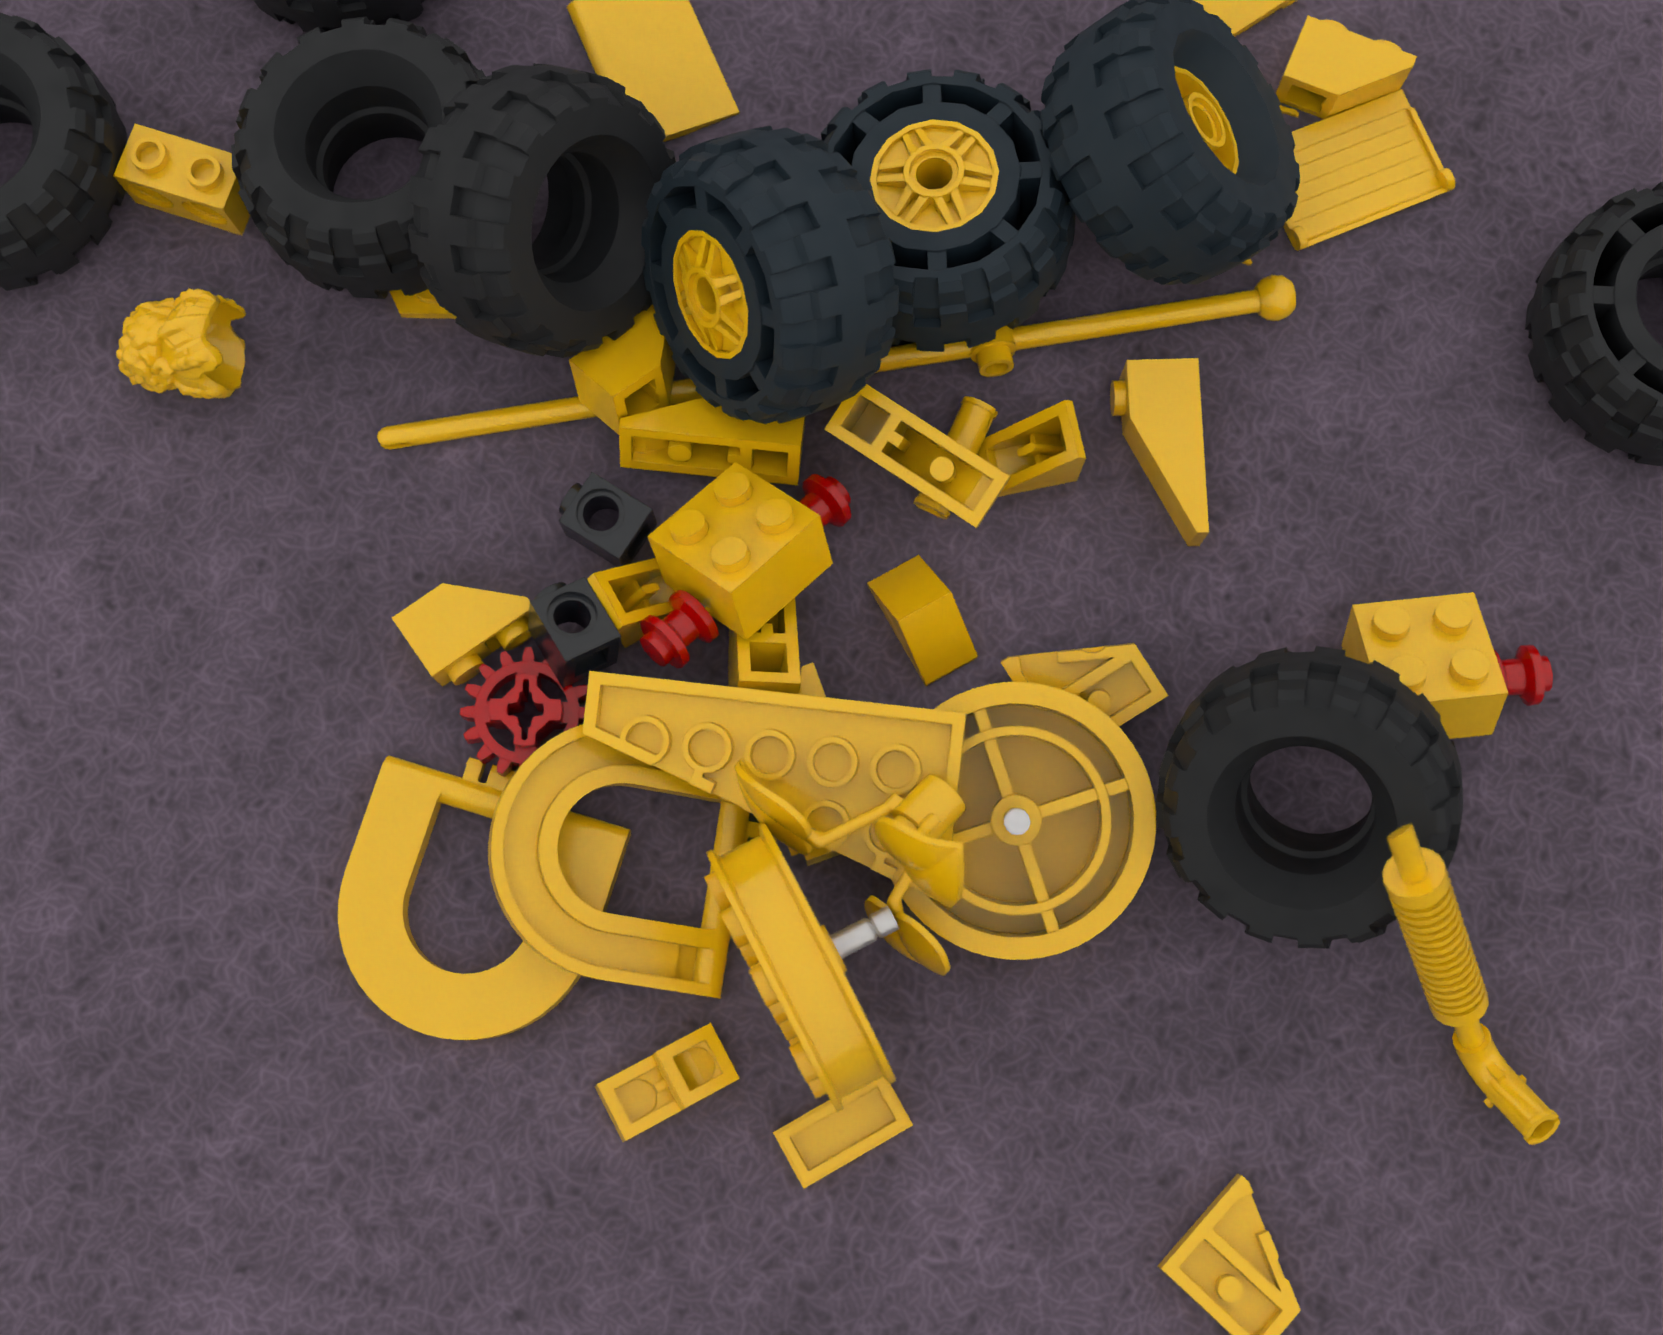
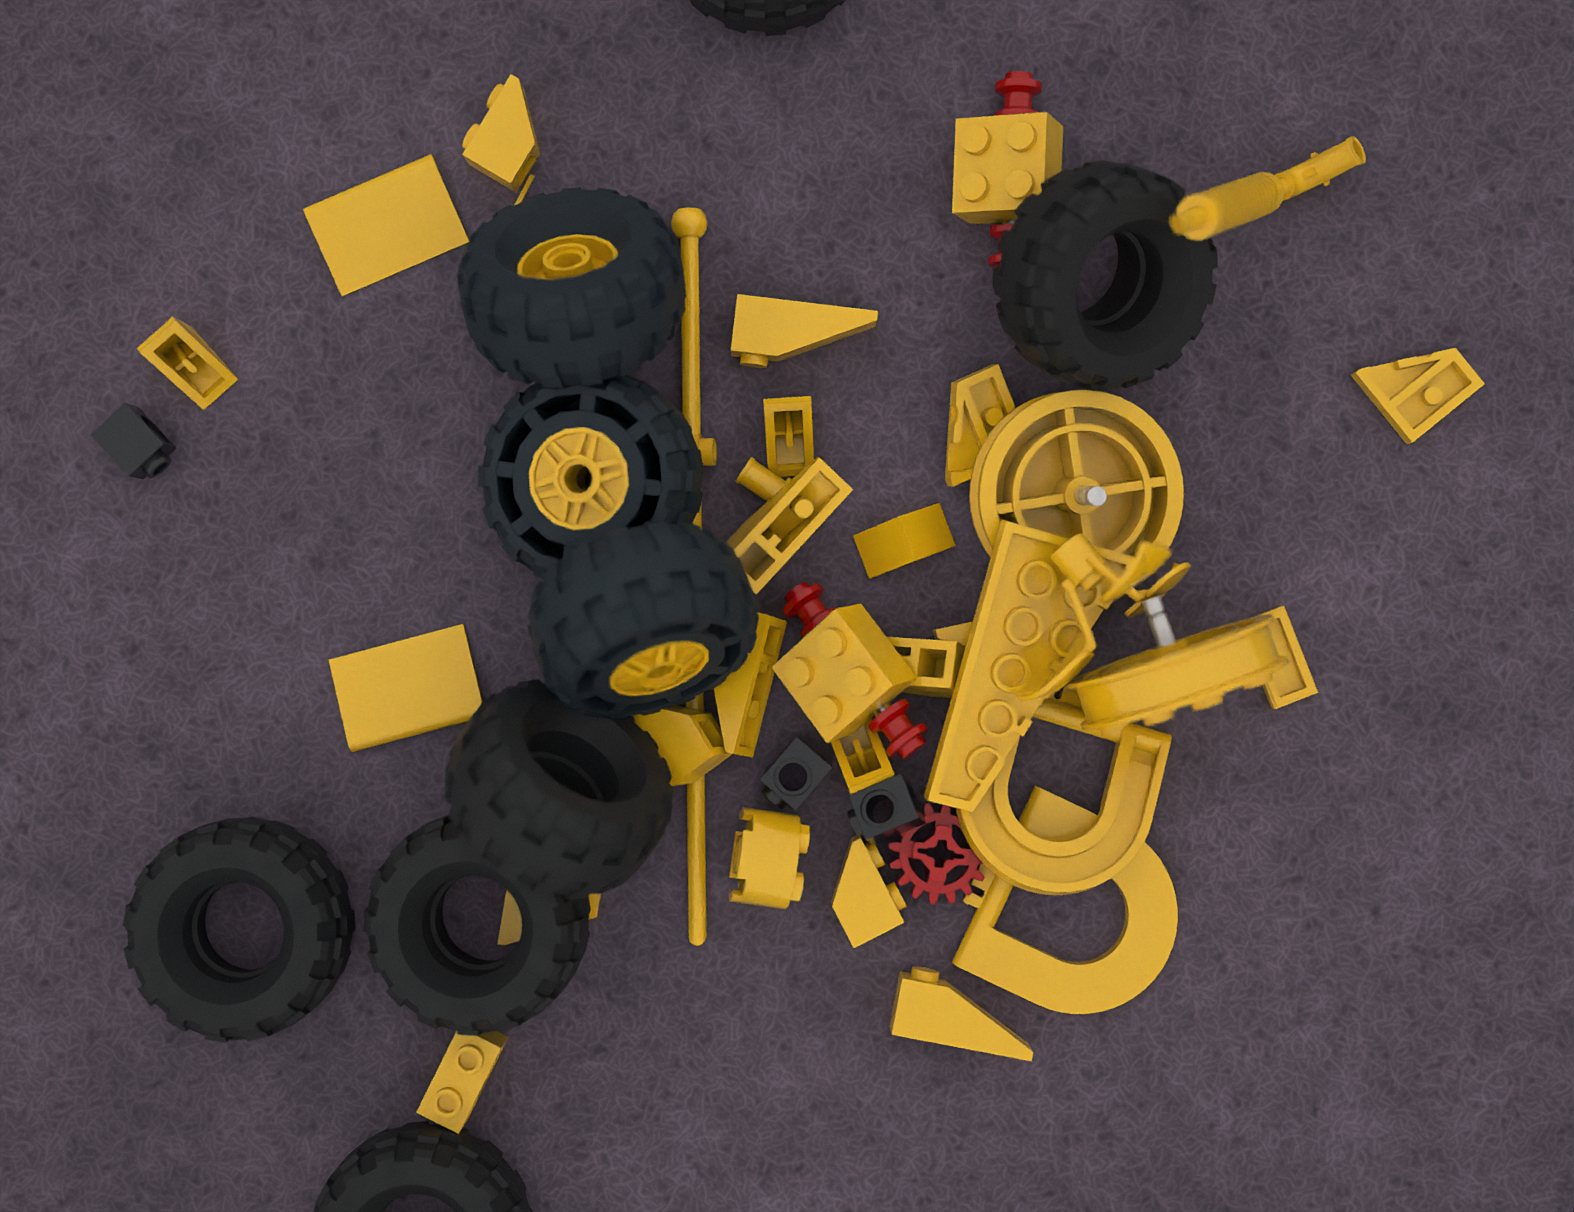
camera: 85 degrees left, 10 degrees up
(184, 345) = (605, 1090): yellow hair -> none
(319, 752) = (942, 1014): none -> yellow slope
(493, 494) = (767, 858): none -> yellow brick
(666, 1082) = (1226, 782): yellow slope -> none
(1362, 169) = (587, 133): yellow piece -> none

